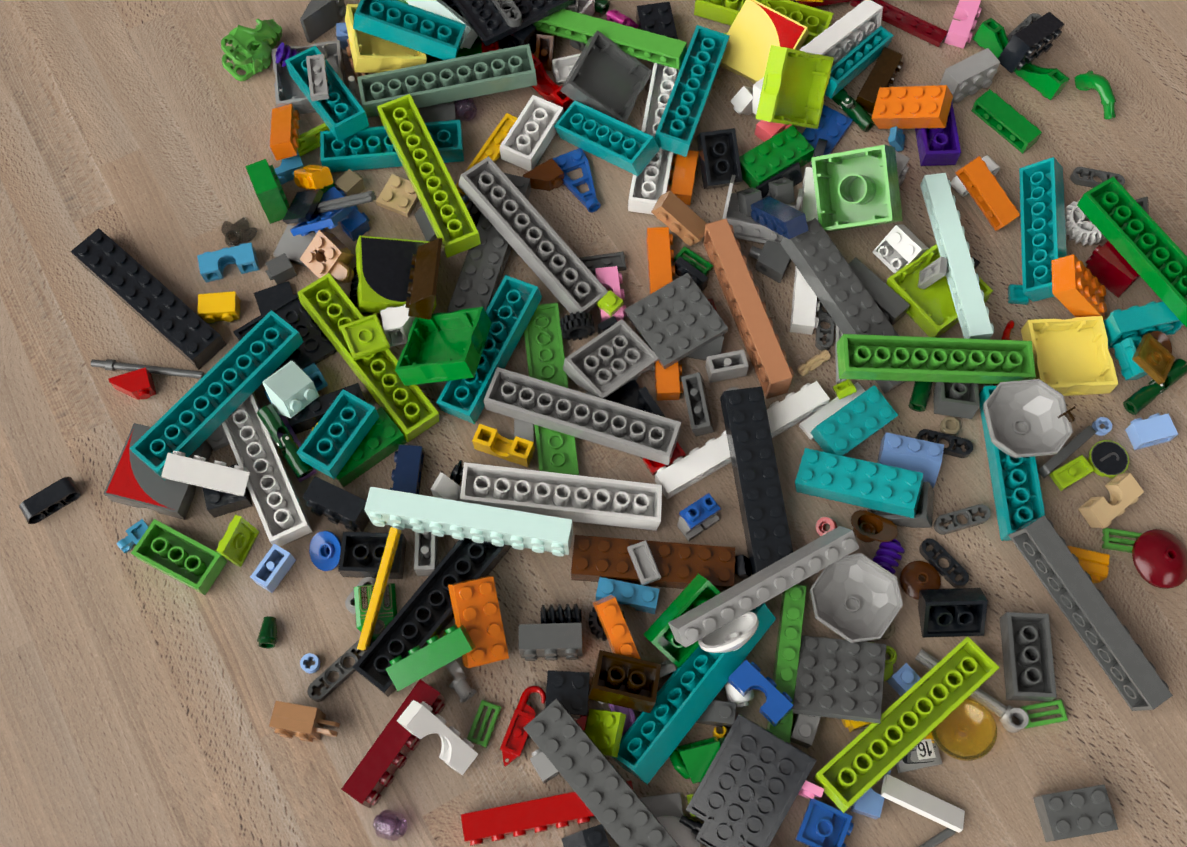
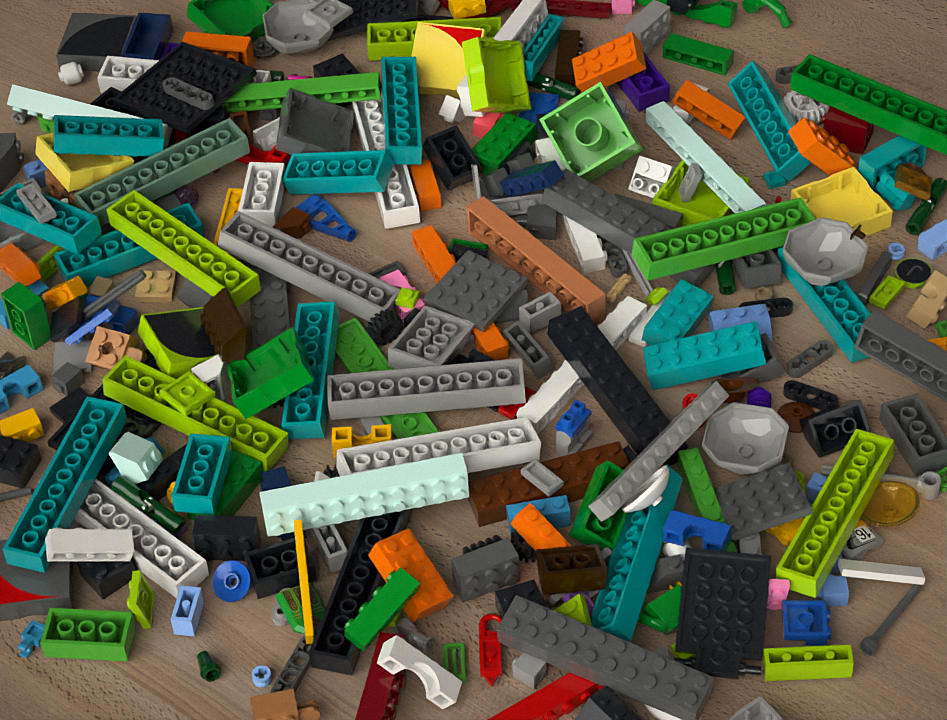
camera: 20 degrees left, 20 degrees down
(679, 218) = (439, 213): medium nougat brick -> none

